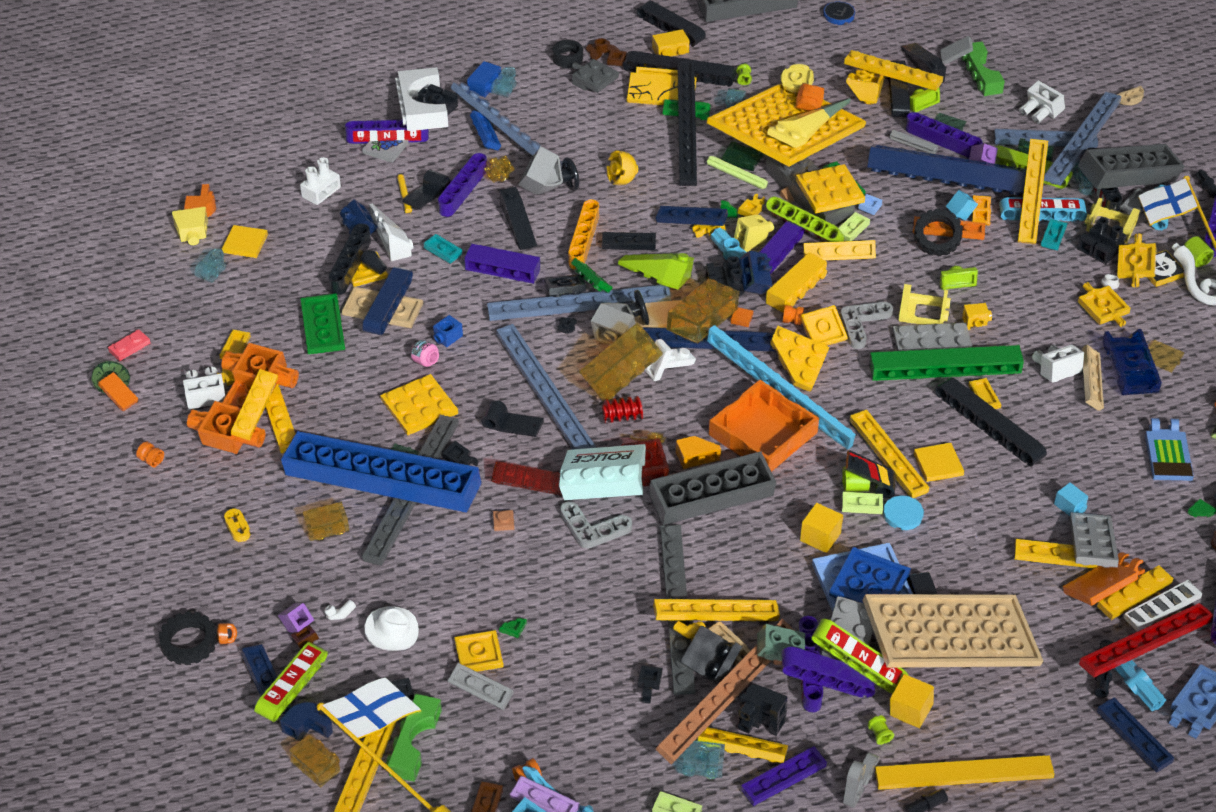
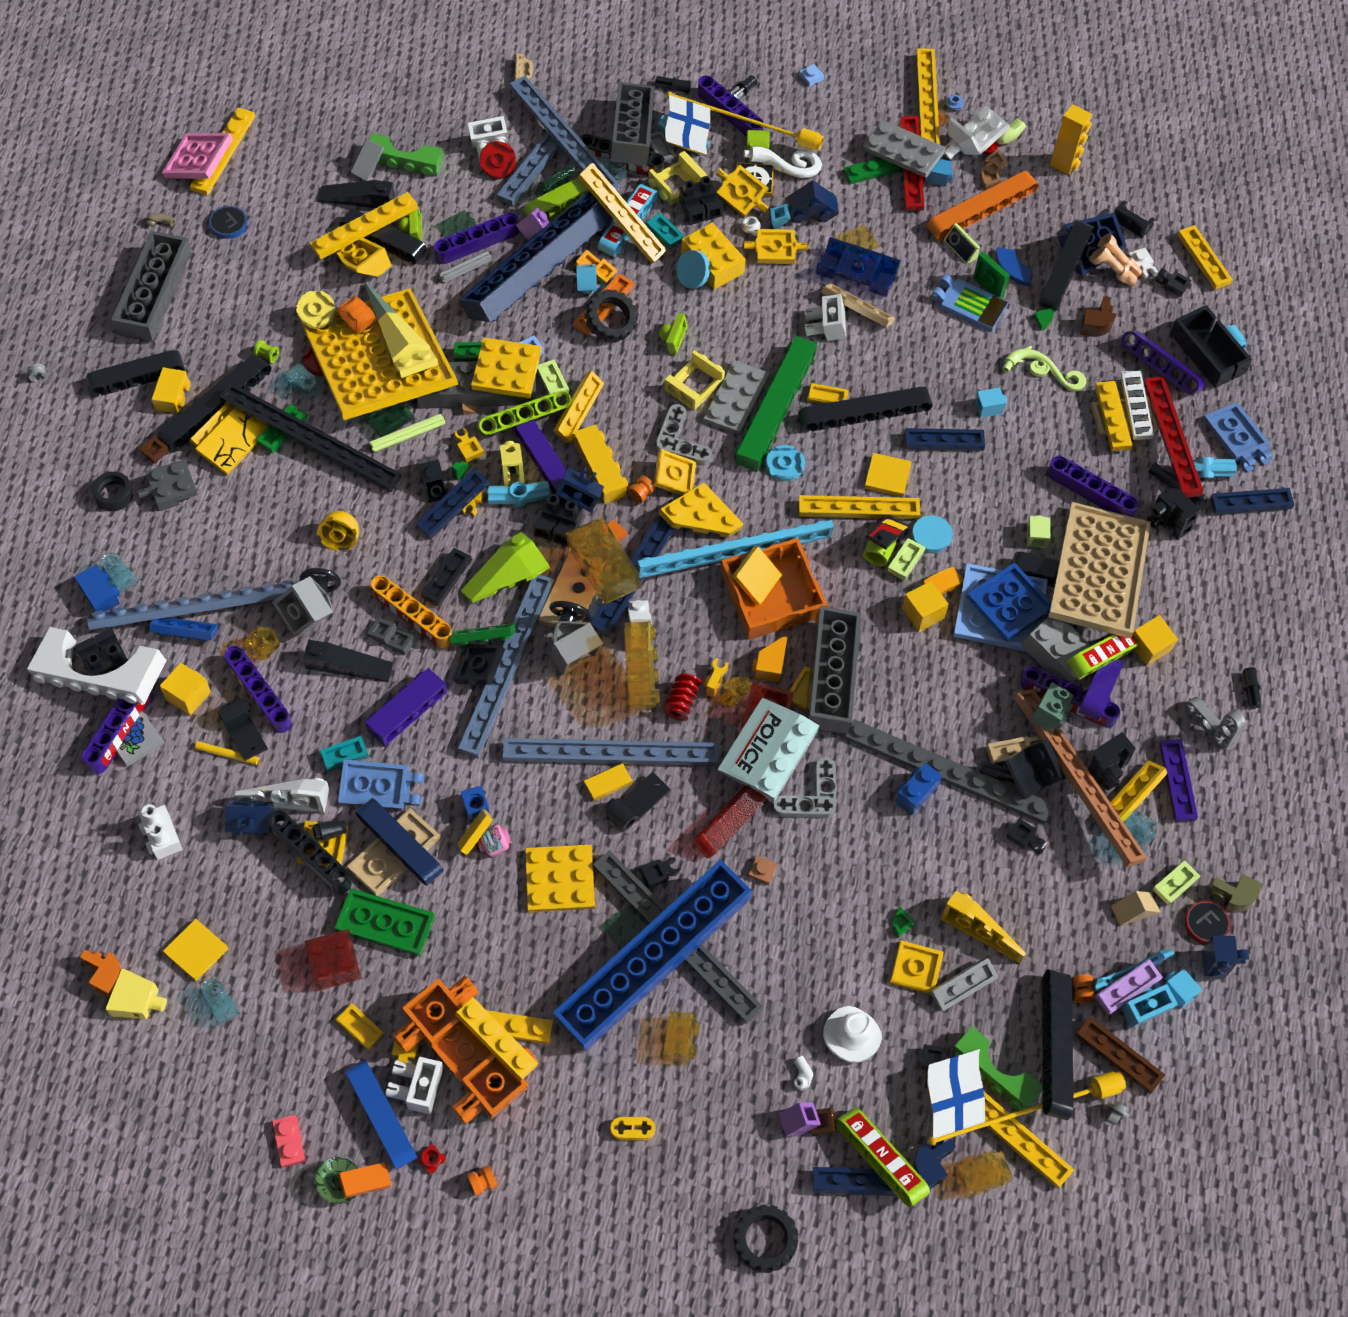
camera: 65 degrees left, 15 degrees up
(154, 422) = (431, 1151): none -> red plate
(171, 381) = (381, 1114): none -> blue beam
(222, 633) = (778, 1198): orange tile -> none
(275, 307) = (333, 960): none -> clear red brick
(428, 335) = (474, 831): none -> yellow tile
(429, 274) = (382, 781): none -> medium blue tile
(436, 148) = (185, 688): none -> yellow head
(457, 764) = (1057, 1045): none -> black beam
(519, 399) = (608, 782): none -> yellow tile
(544, 669) = (973, 920): none -> yellow wedge
(558, 235) = (391, 636): none -> dark grey slope
(567, 325) = (531, 695): black plate -> none
(601, 46) = (124, 457): reddish brown animal -> none
(634, 788) = (1135, 907): none -> tan slope
(641, 587) = (918, 788): none -> blue brick
(654, 424) = (714, 681): none -> yellow plate
(687, 631) = (994, 774): yellow arm -> none
(708, 195) = (432, 478): none -> black slope
(716, 610) = (977, 741): yellow plate -> none
(764, 407) = (756, 575): none -> yellow tile
(858, 534) = (946, 580): none -> light orange slope
(880, 730) = (1165, 680): lime bush -> none
(894, 393) = (785, 463): none -> medium azure tile
(963, 581) = (1038, 532): none -> yellowish green brick
(964, 772) = (1232, 642): yellow tile -> none
(976, 315) = (732, 347): yellow brick -> none
(1006, 485) = (944, 439): none -> dark blue plate
(1025, 261) = (693, 269): none -> medium azure tile
(1027, 115) = (497, 159): none -> red tile
(1043, 604) = (1086, 481): none -> dark purple beam
(1046, 553) = (1040, 447): yellow plate -> none
(1054, 269) = (723, 257): none -> yellow brick
(1063, 666) = (1174, 510): none -> black hips
(1093, 540) = (1047, 411): light grey plate -> none
(1104, 580) = (1090, 430): orange tile -> none
(1134, 292) = (779, 215): none -> medium azure slope
(1140, 526) = (1041, 371): none -> yellowish green plant
(1168, 305) = (812, 200): none -> dark blue brick
(1202, 447) = (991, 275): none -> green tile

